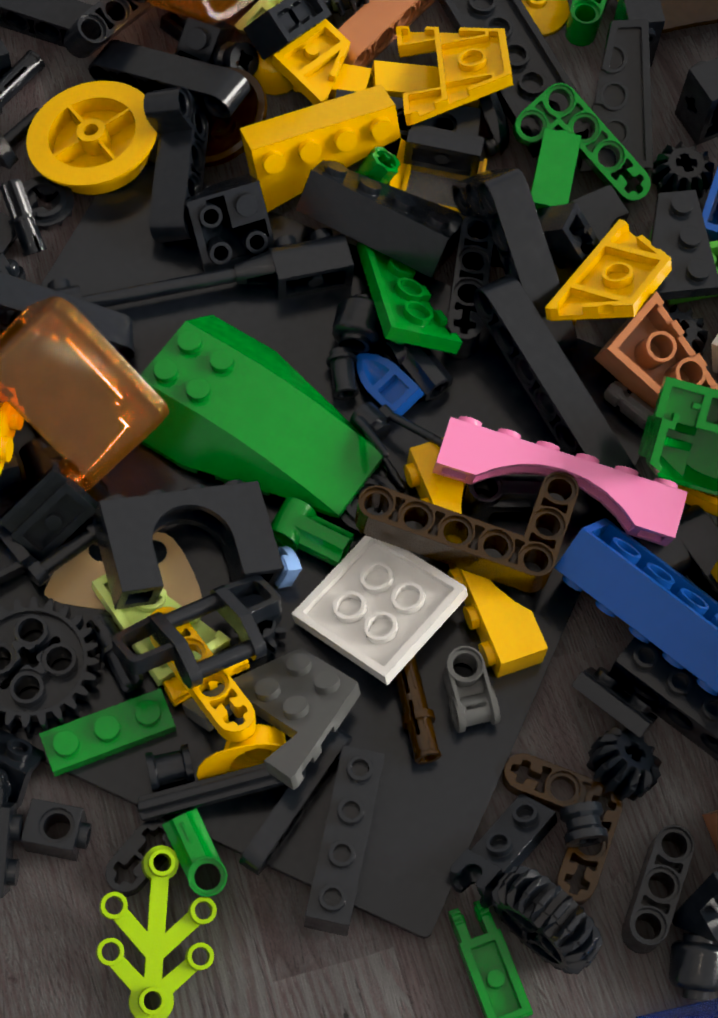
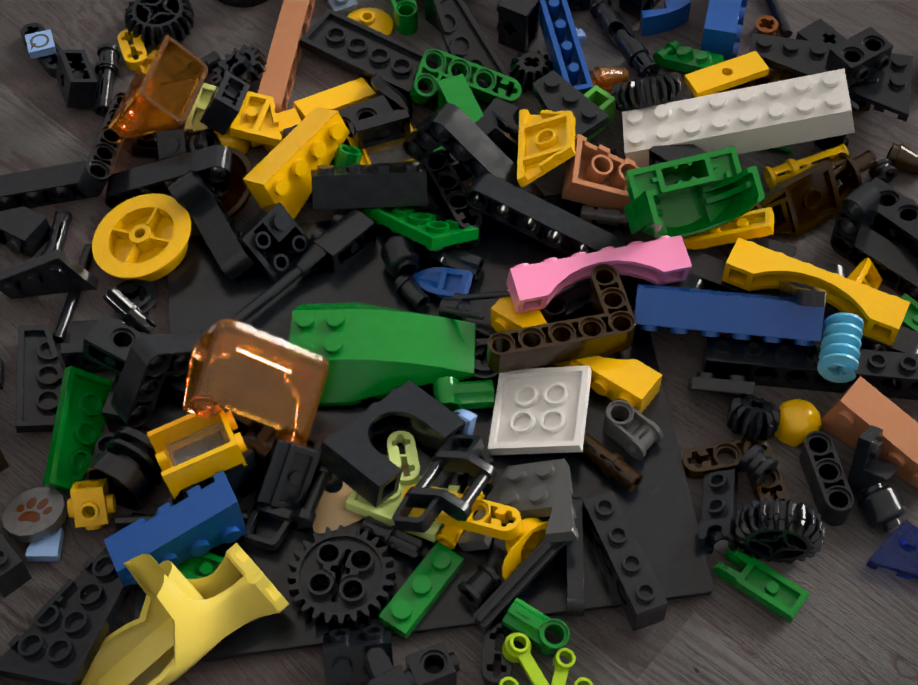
camera: 25 degrees left, 10 degrees down
(185, 564) = (410, 457): none -> yellowish green beam
(468, 65) = (357, 71): yellow wing -> none
(678, 798) = (796, 421): none -> yellow hair

